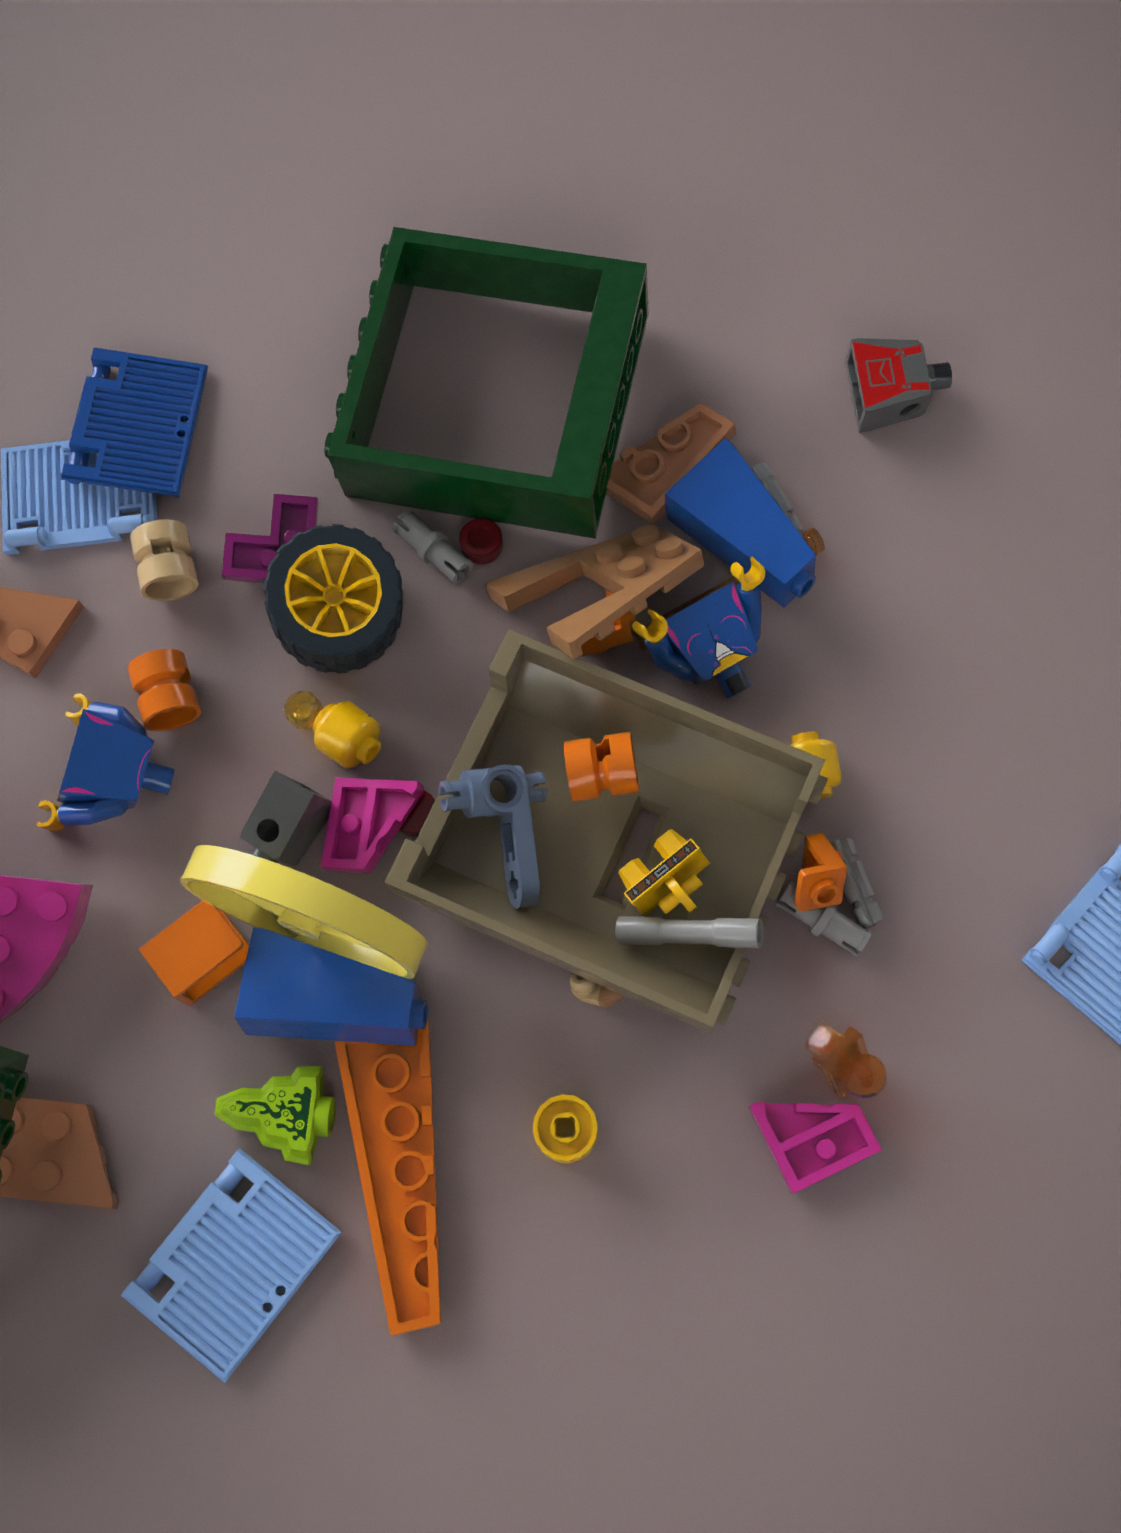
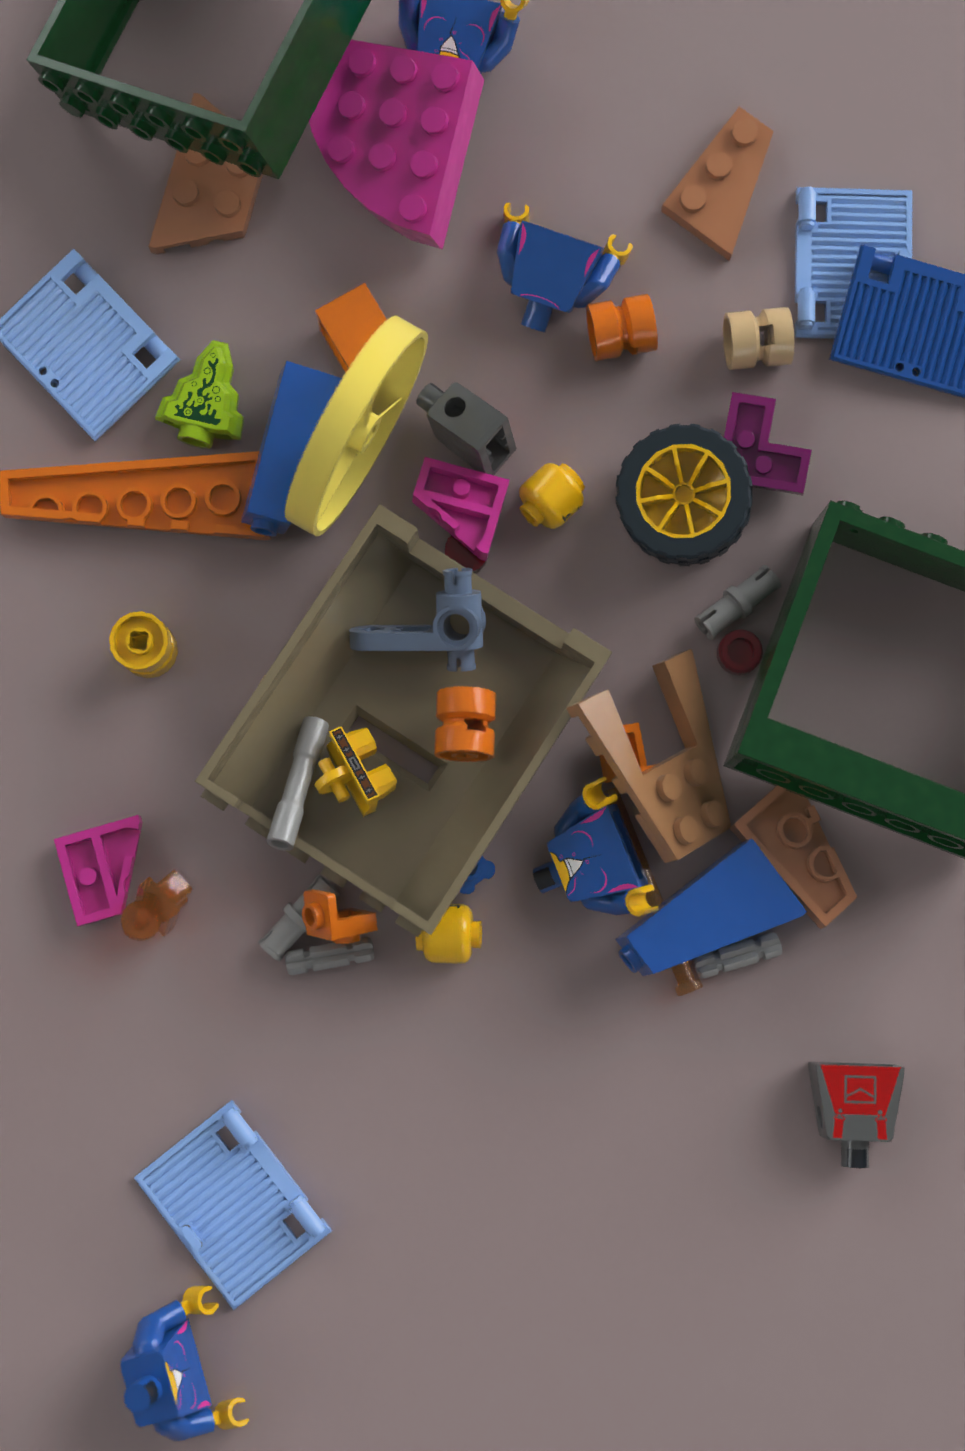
camera: 90 degrees right, 10 degrees up
(299, 709) = (586, 453): clear yellow hinge -> none

